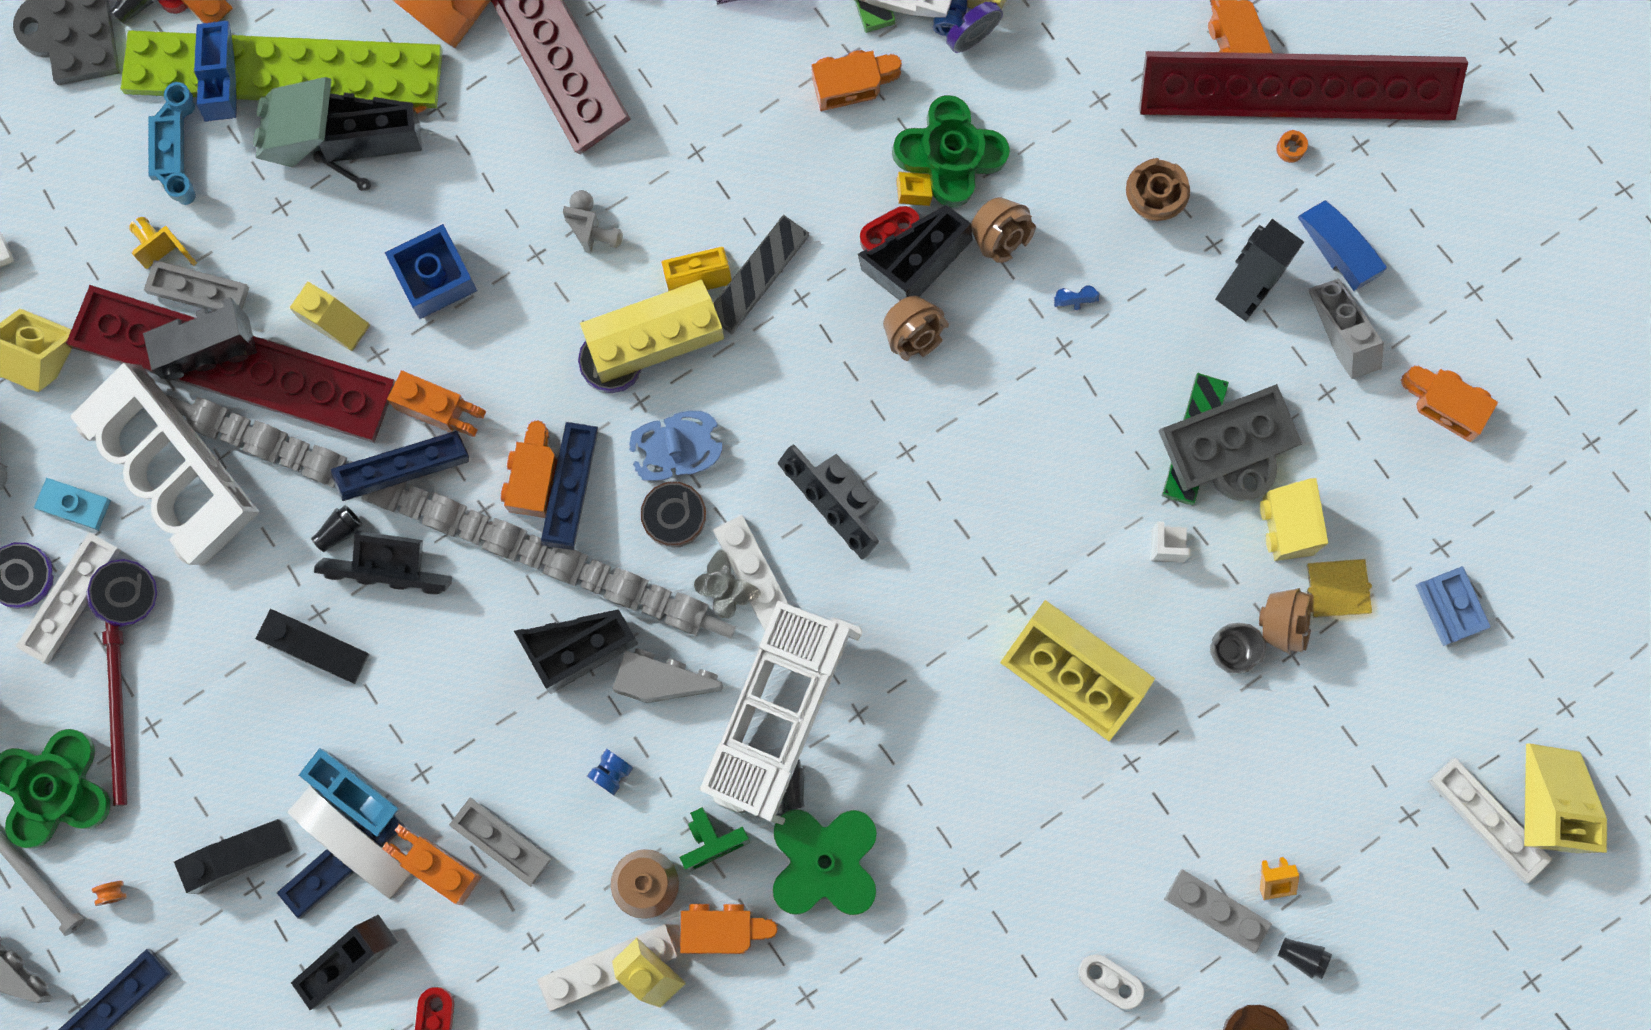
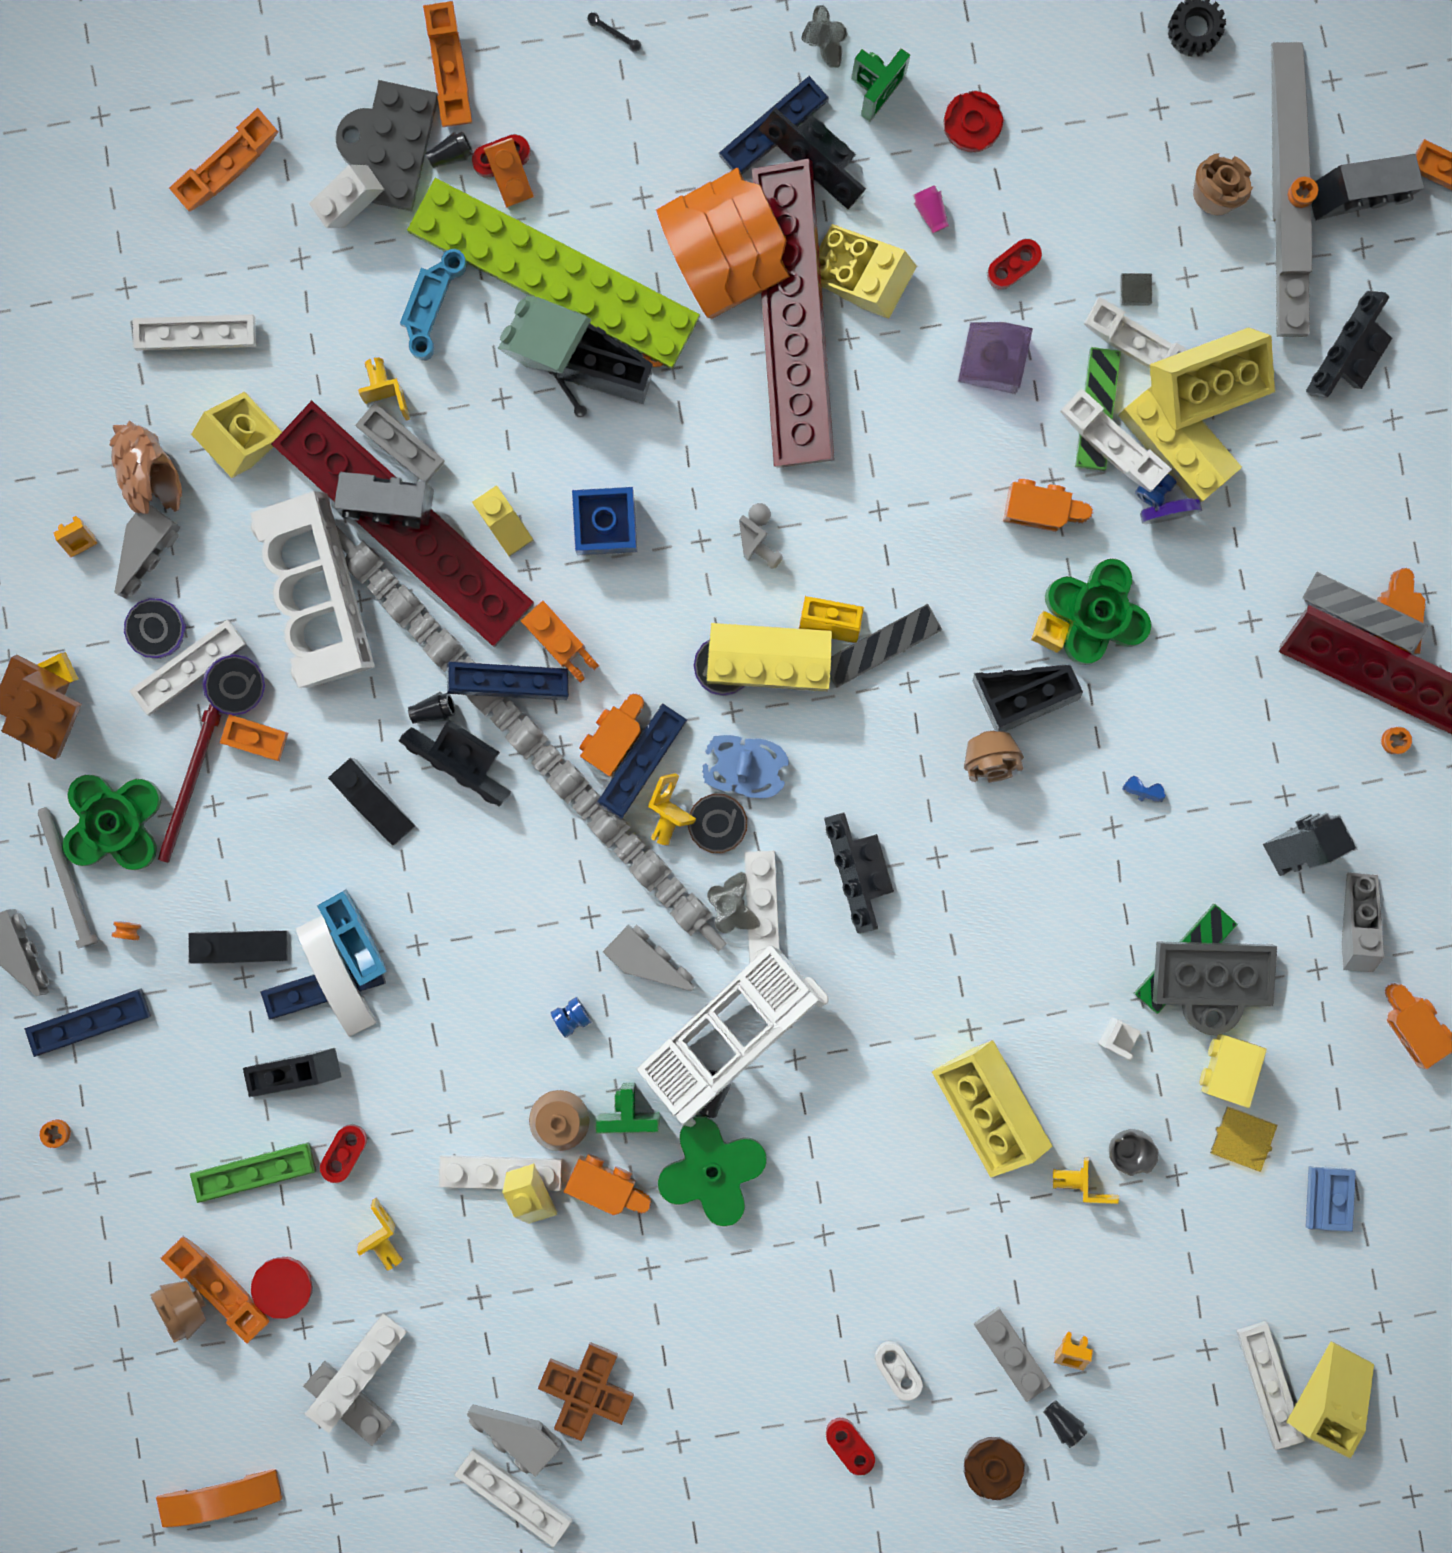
camera: 25 degrees right, 10 degrees up
(46, 79) = (346, 196): none -> white brick
(72, 504) = (222, 586): medium azure plate -> none
(164, 637) = (254, 737): none -> orange plate
(215, 71) = (495, 255): blue slope -> none
(435, 867) = (395, 1029): orange hinge -> none
(500, 842) = (457, 1033): light grey plate -> none
(575, 647) = (586, 902): black wedge -> none
(620, 524) = (669, 813): none -> yellow bracket
(887, 225) = (1011, 657): red plate -> none
(1001, 228) = (1108, 703): medium nougat cone -> none
(1158, 189) = (1259, 731): medium nougat cone -> none
(1199, 701) = (1080, 1181): none -> yellow bracket
(1208, 36) = (1365, 612): none -> tile
(1287, 620) = (1185, 1149): medium nougat cone -> none
(1342, 245) = (1394, 848): blue slope -> none

